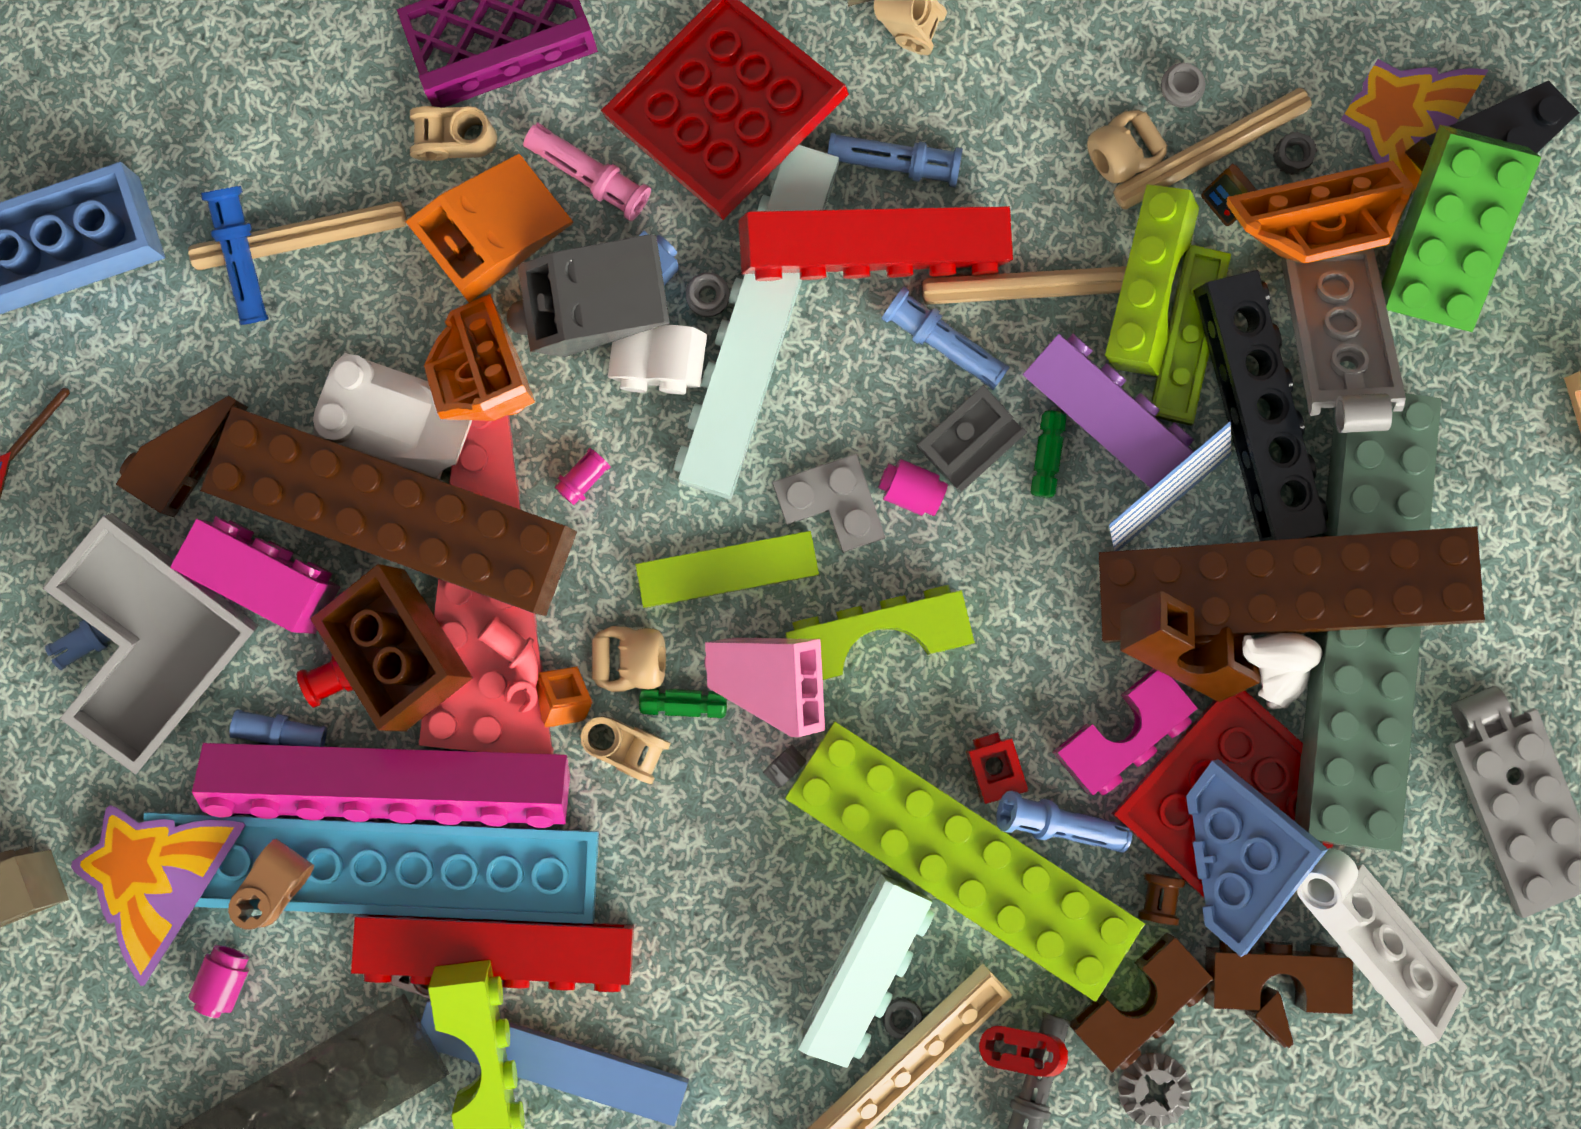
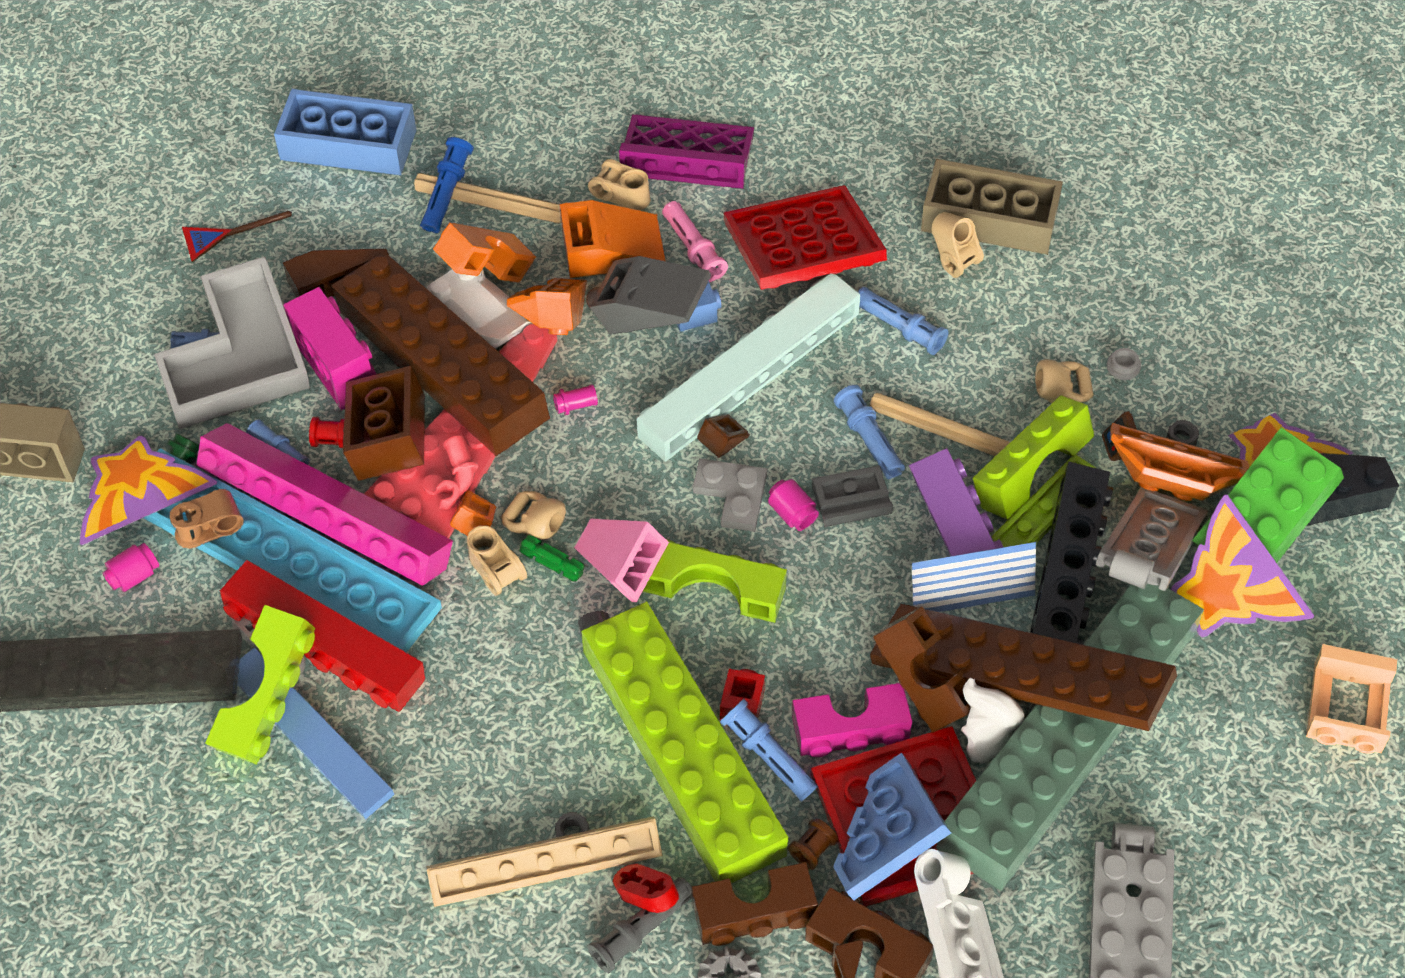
camera: 30 degrees right, 30 degrees down
(170, 794) = (183, 447): none -> dark green plate
(345, 356) = (472, 248): none -> orange arch
(659, 357) = (670, 351): white brick -> none
(704, 281) = (722, 332): light grey plate -> none
(727, 569) = (635, 497): lime tile -> none
(777, 429) = (721, 434): none -> reddish brown slope
(864, 971) = (564, 770): light aqua slope -> none
(874, 240) = (855, 345): red brick -> none
(1048, 454) = (901, 531): green axle -> none
(1214, 147) = (1142, 408): tan axle -> none
(1459, 333) = (1238, 577): none -> sticker

